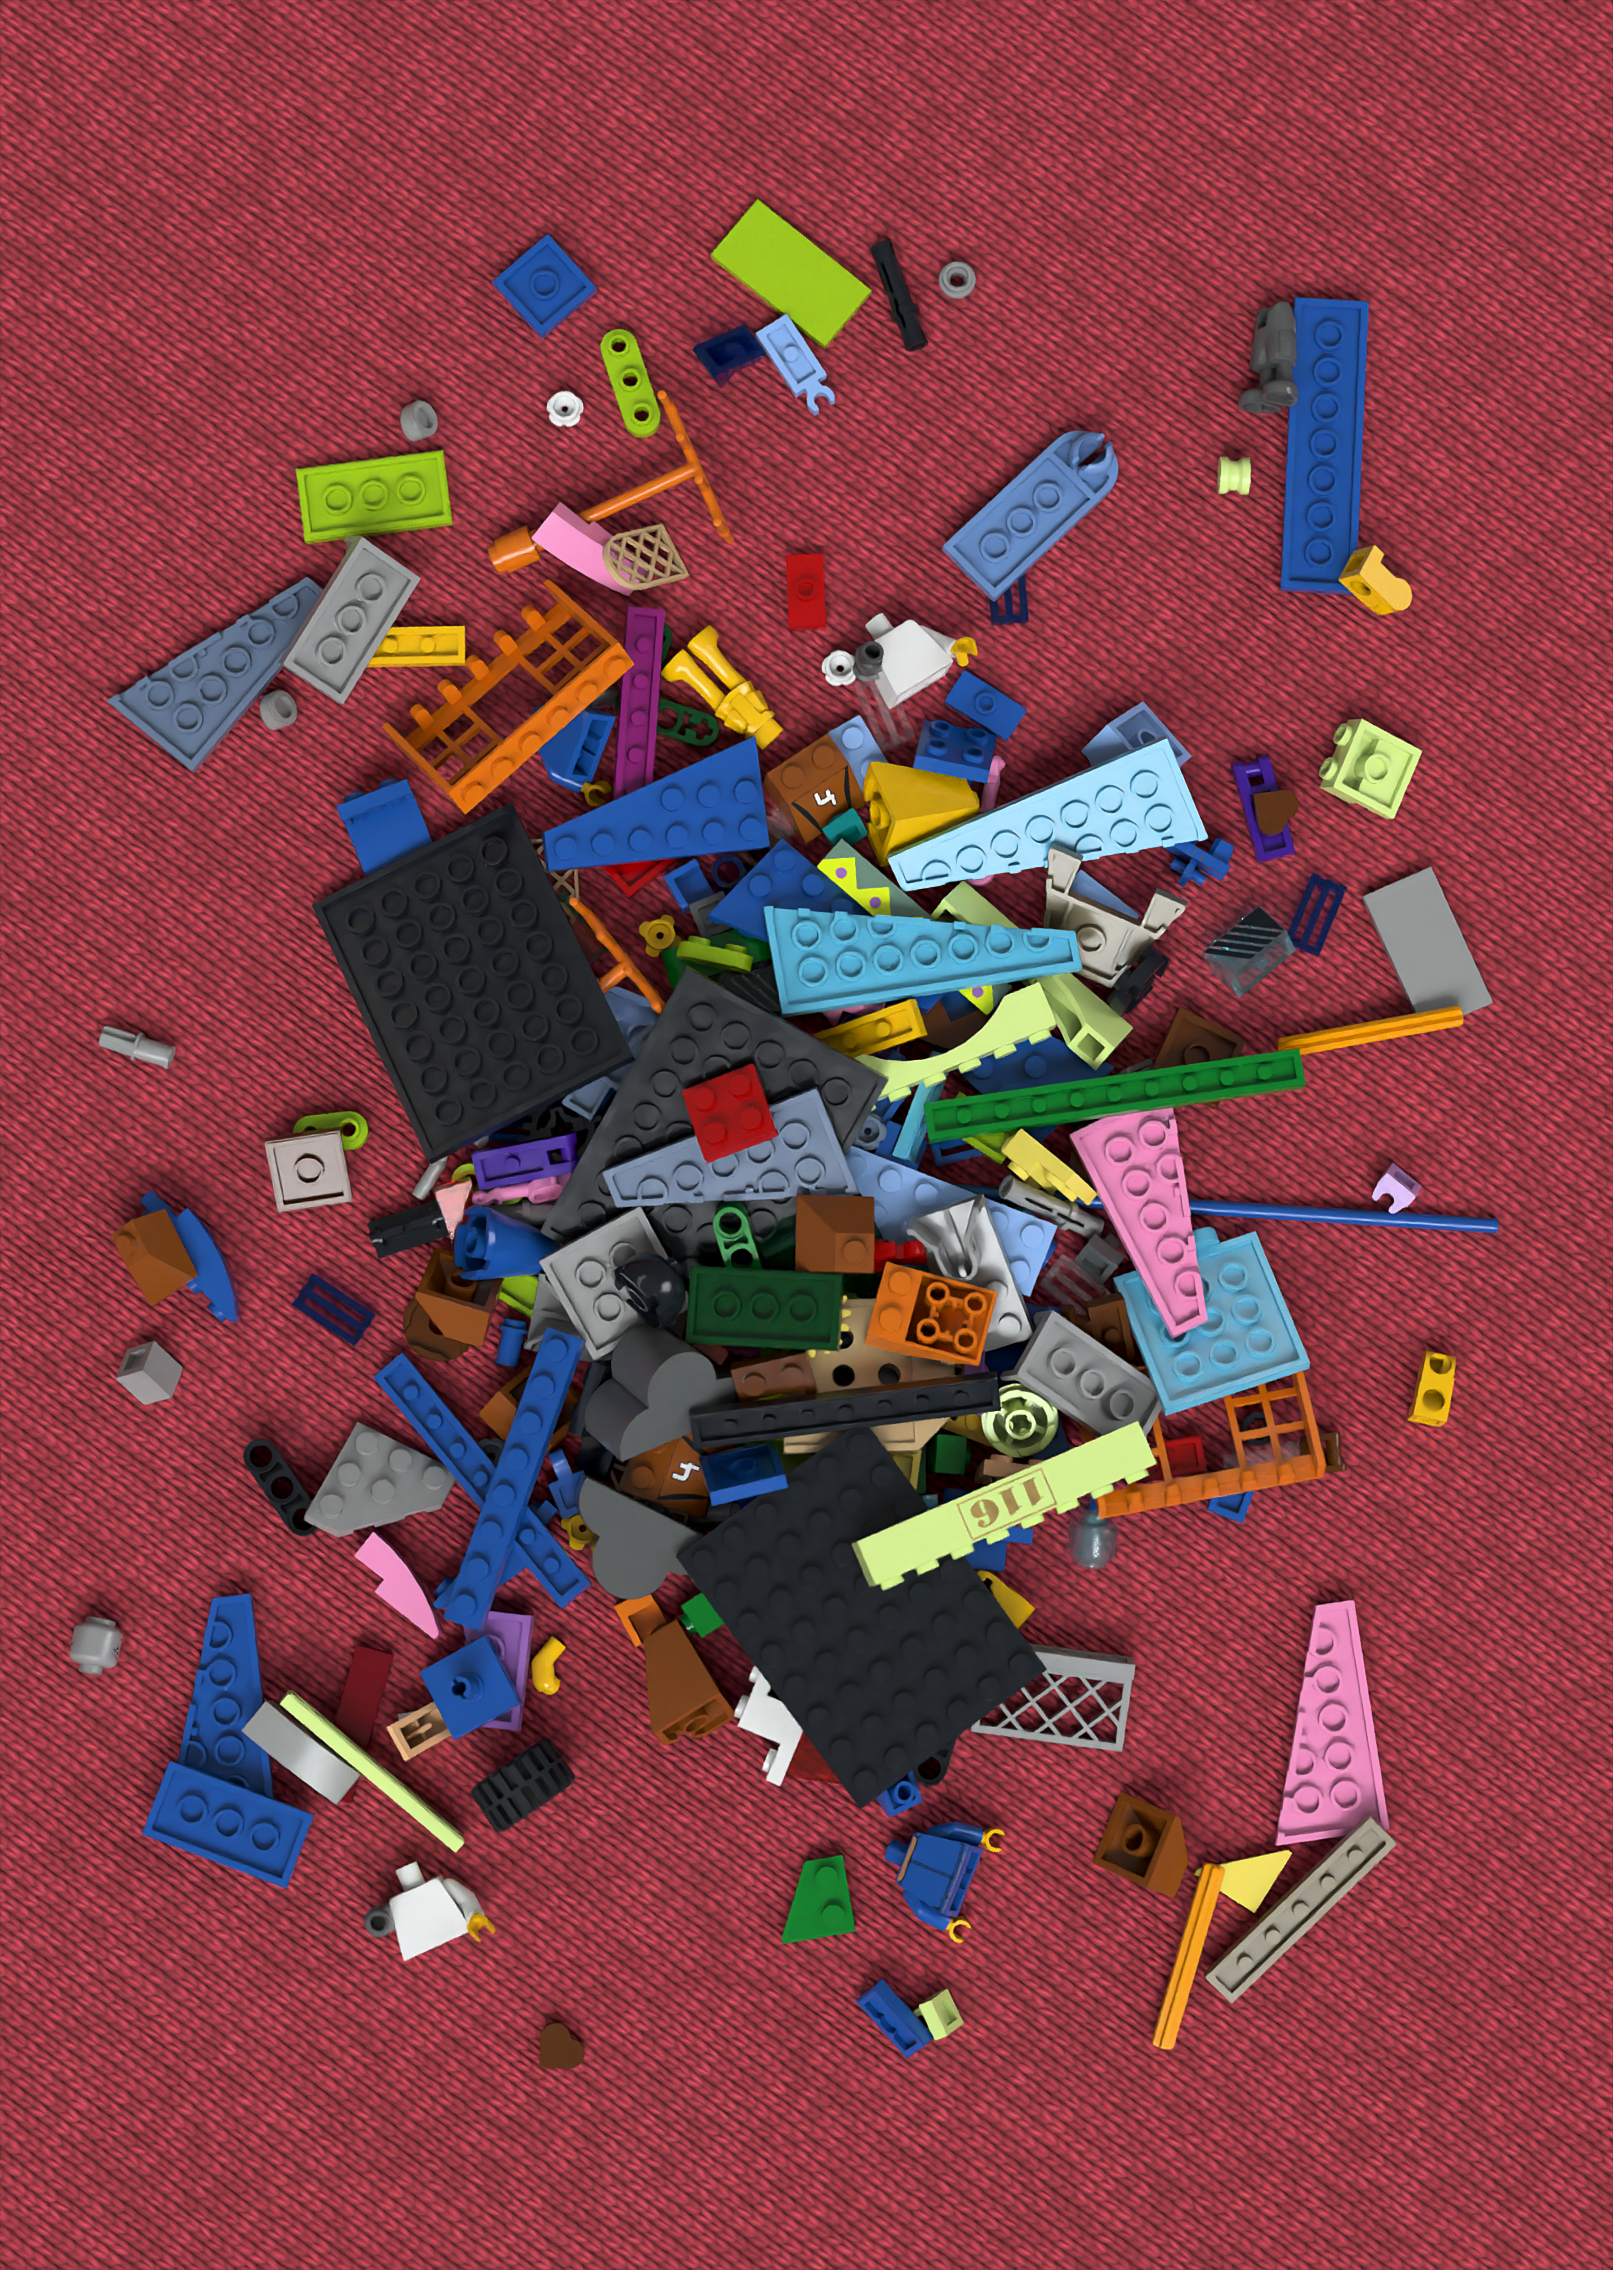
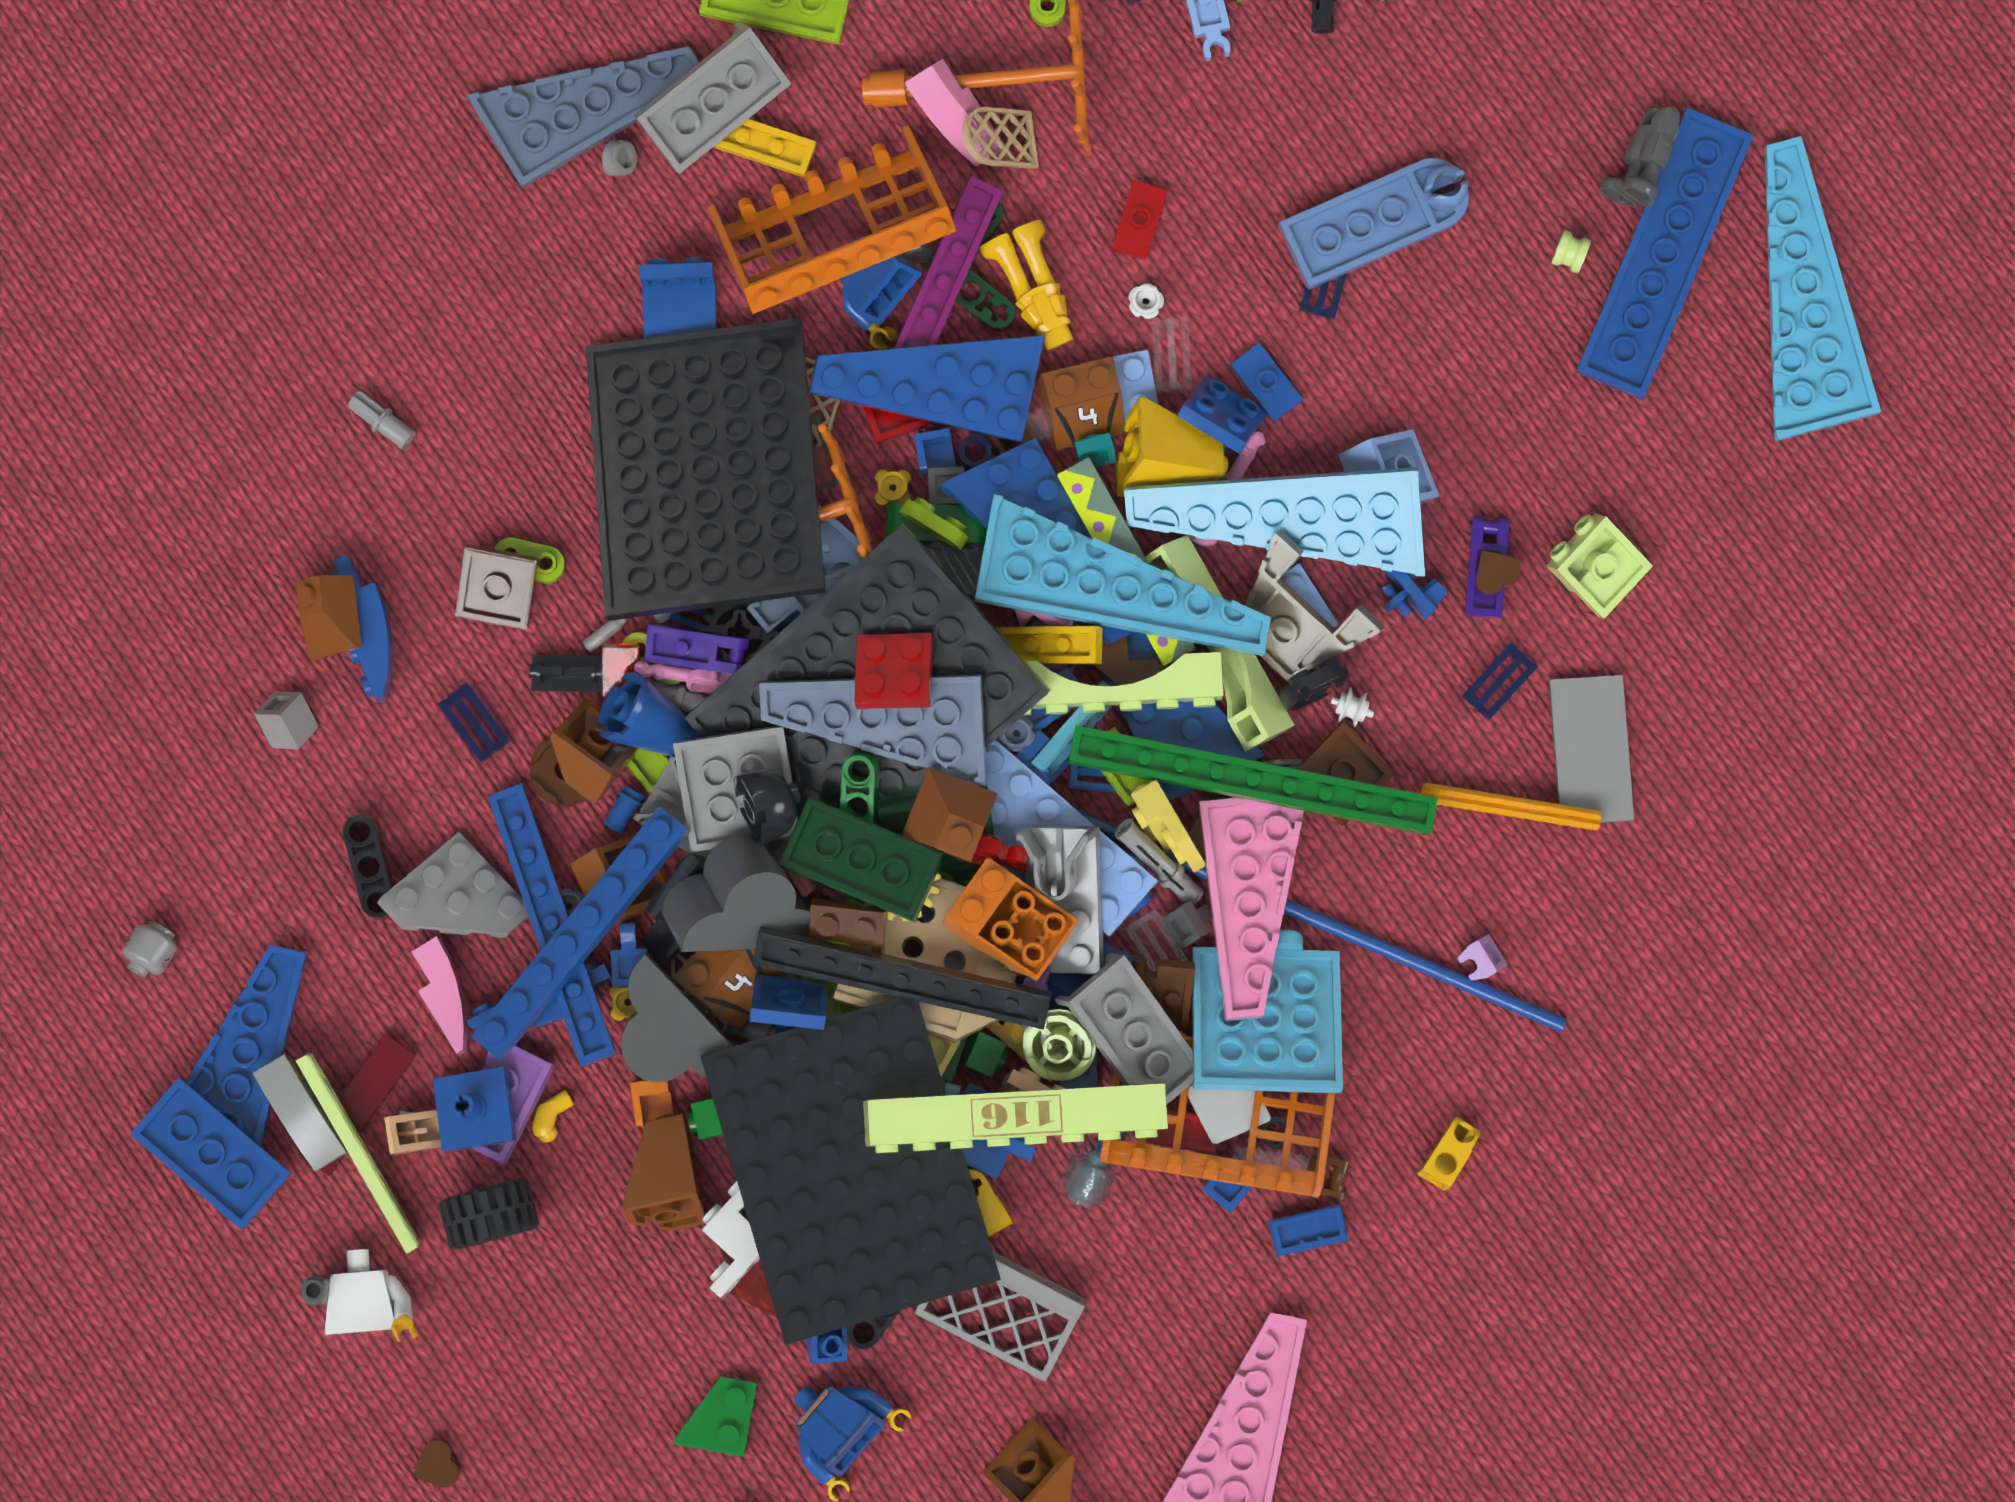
camera: 20 degrees right, 0 degrees up
(907, 657) = (1209, 313): white torso -> none
(1182, 990) = (1352, 707): none -> white wheel
(1202, 1427) = (1225, 1112): none -> white sticker
(1248, 951) = (1425, 693): clear light blue brick -> none
(1323, 1513) = (1308, 1230): none -> blue plate
(1374, 583) = (1663, 395): yellow leg -> none
(1498, 479) = (1815, 343): none -> medium azure wing

